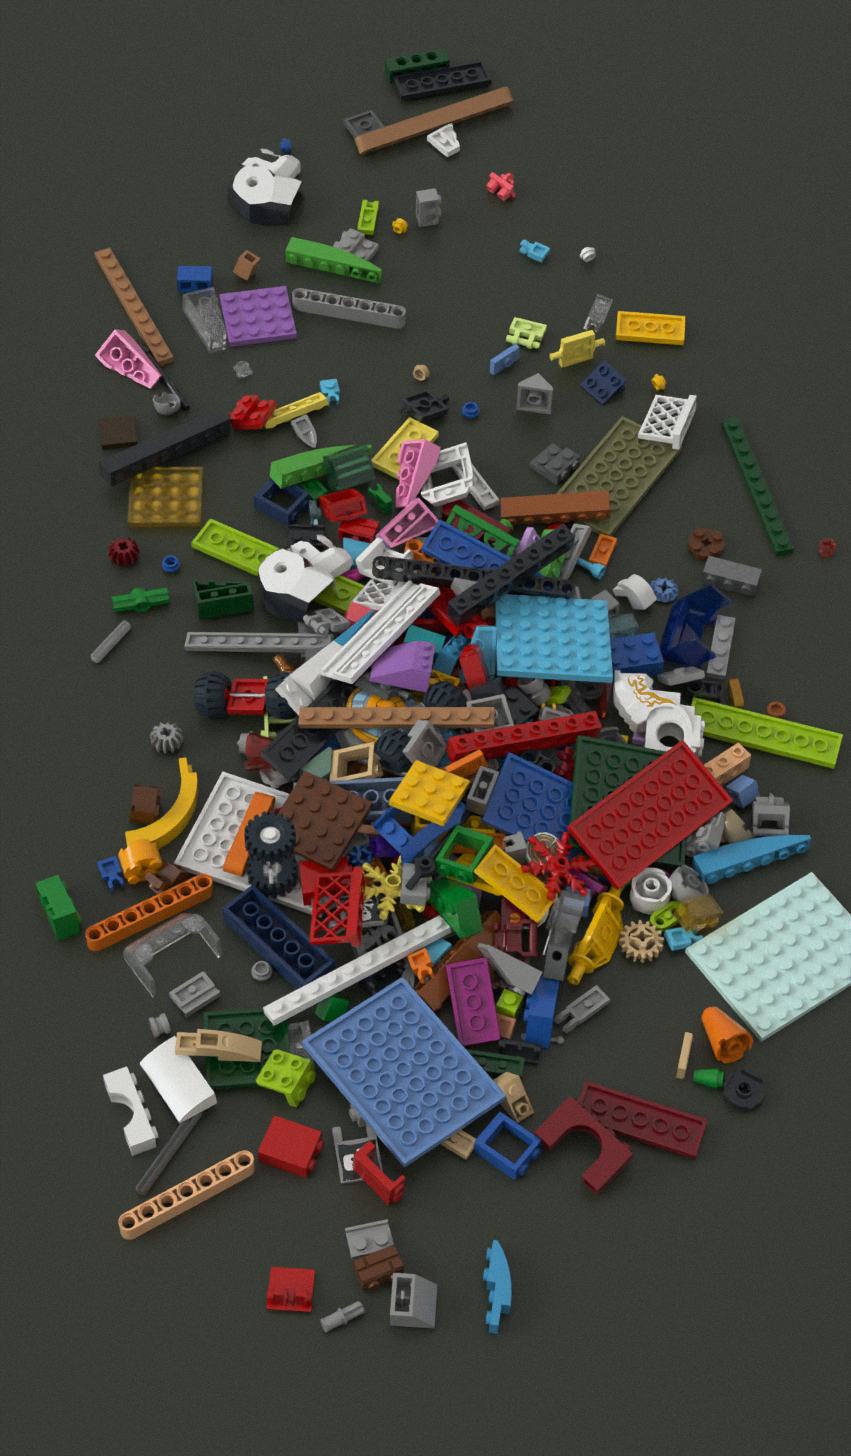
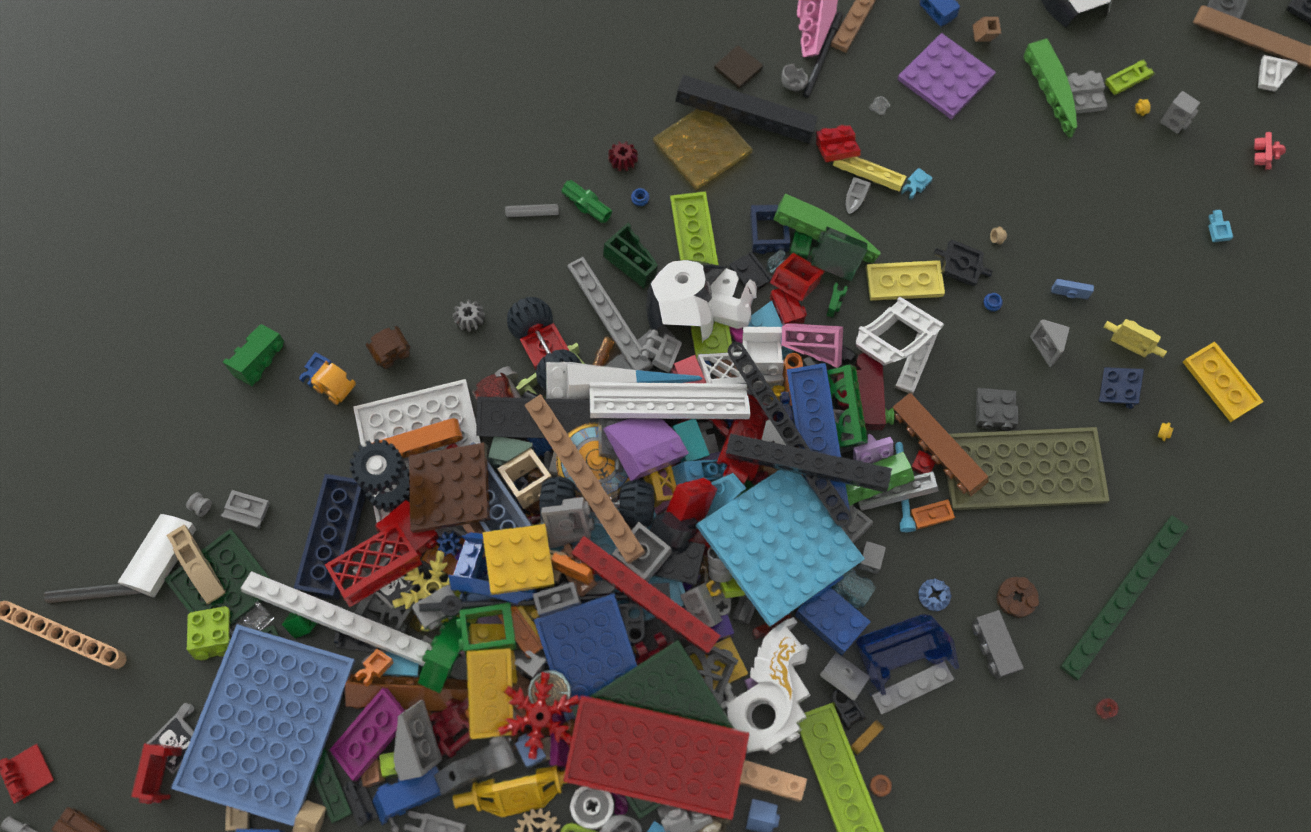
camera: 55 degrees right, 15 degrees up
(122, 1089) = (96, 559): white arch -> none
(142, 950) = (299, 456): clear windscreen -> none
(143, 919) = (291, 416): orange beam -> none
(167, 877) = (332, 413): reddish brown brick -> none
(177, 817) = (399, 378): yellow arch -> none
(205, 316) = (908, 38): clear wedge -> none
(261, 971) = (298, 542): light grey plate -> none
(290, 1146) = (150, 682): red brick -> none
(349, 308) = (1015, 134): light grey beam -> none
(368, 1238) = (106, 804): light grey plate -> none
(416, 463) = (889, 303): bright pink wedge -> none
(527, 329) = (1124, 283): yellowish green plate -> none
(588, 254) = (1257, 272): white plate -> none
(598, 312) = (1197, 326): clear hinge -> none
(637, 590) = (907, 574): white brick -> none
(680, 422) = (1136, 482): white fence -> none

